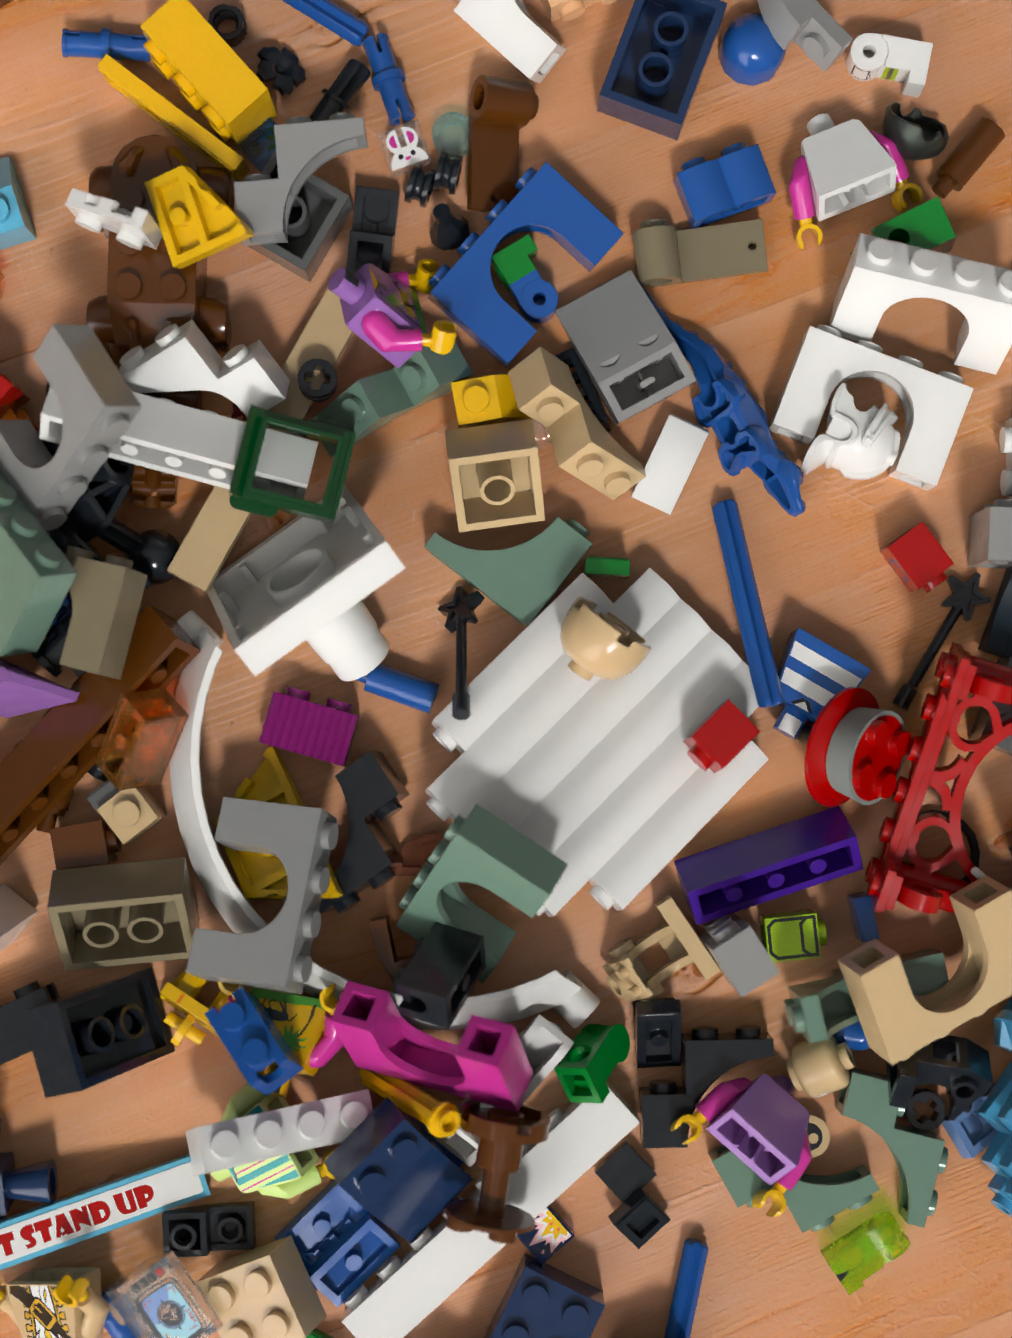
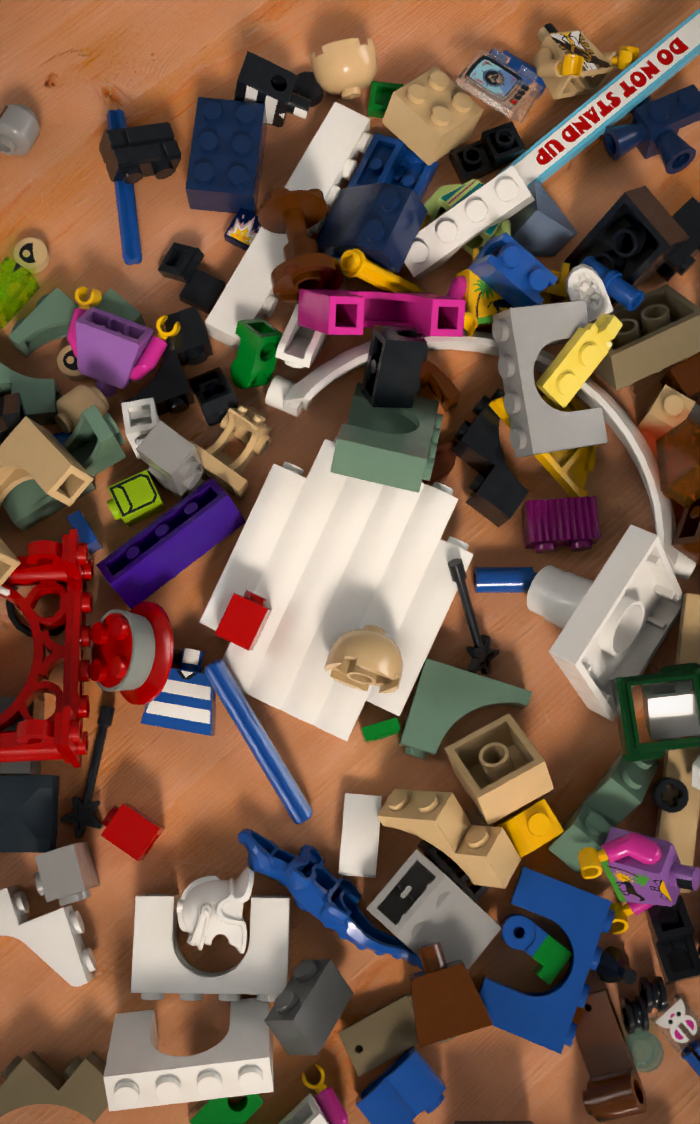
camera: 150 degrees right, 10 degrees down
(135, 993) = (616, 286): none -> blue pin
(171, 988) = (586, 285): none -> white rock
(181, 1102) = (541, 225): none -> sand blue slope
(221, 903) = (578, 359): none -> light yellow hinge
(647, 259) = (444, 998): none -> reddish brown torso
(757, 1016) = (139, 420): none -> white leg
(791, 304) = (309, 1007): none -> dark grey brick
(817, 1294) = (32, 254): none -> tan tile

